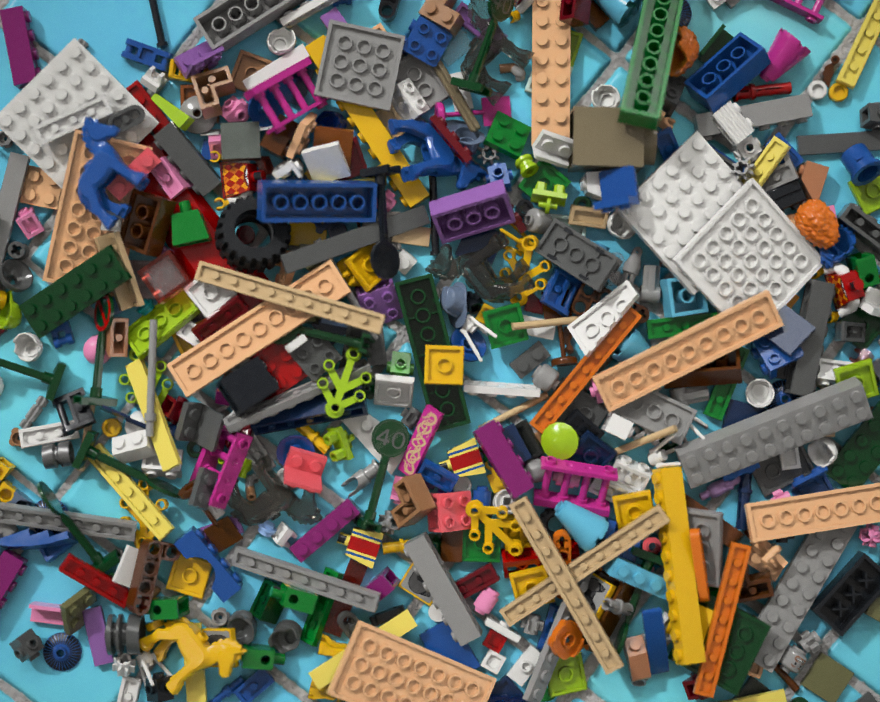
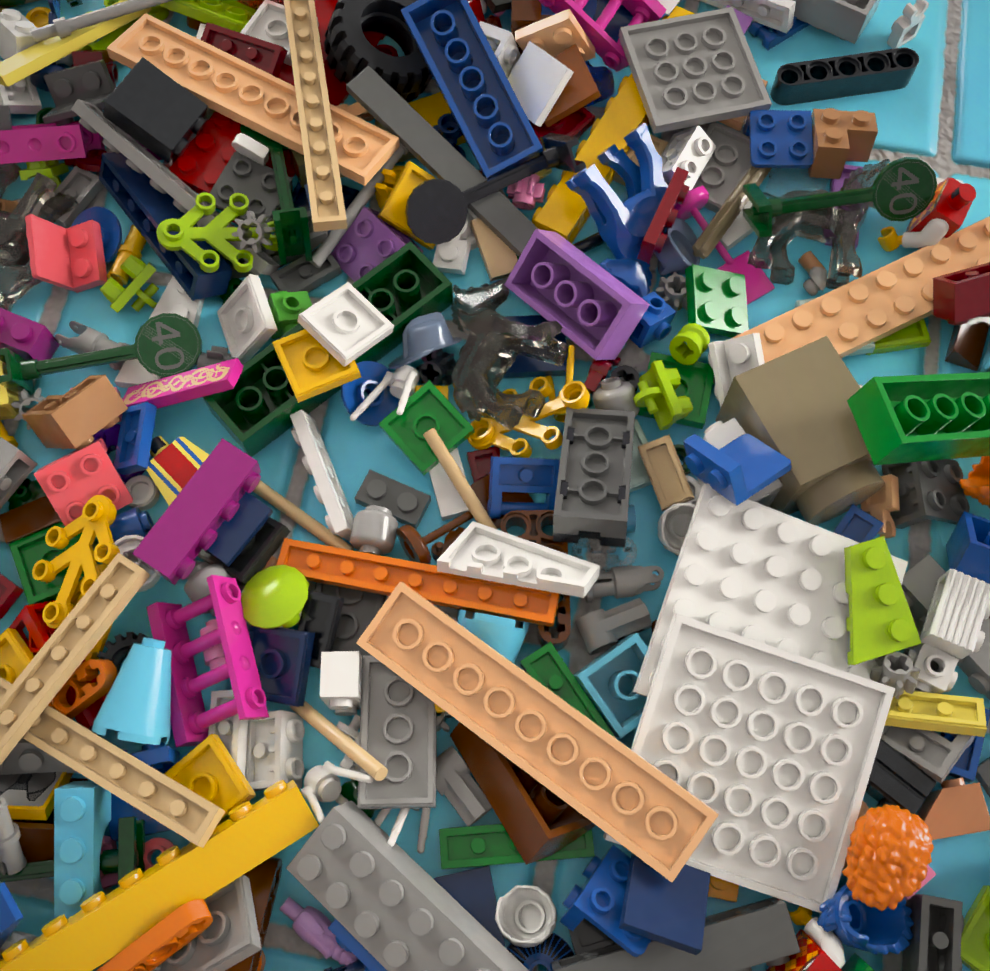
camera: 65 degrees right, 20 degrees down
(356, 365) = (245, 234): none -> light grey gear
(434, 341) = (345, 324): none -> white tile
(711, 160) = (877, 605): none -> lime wing

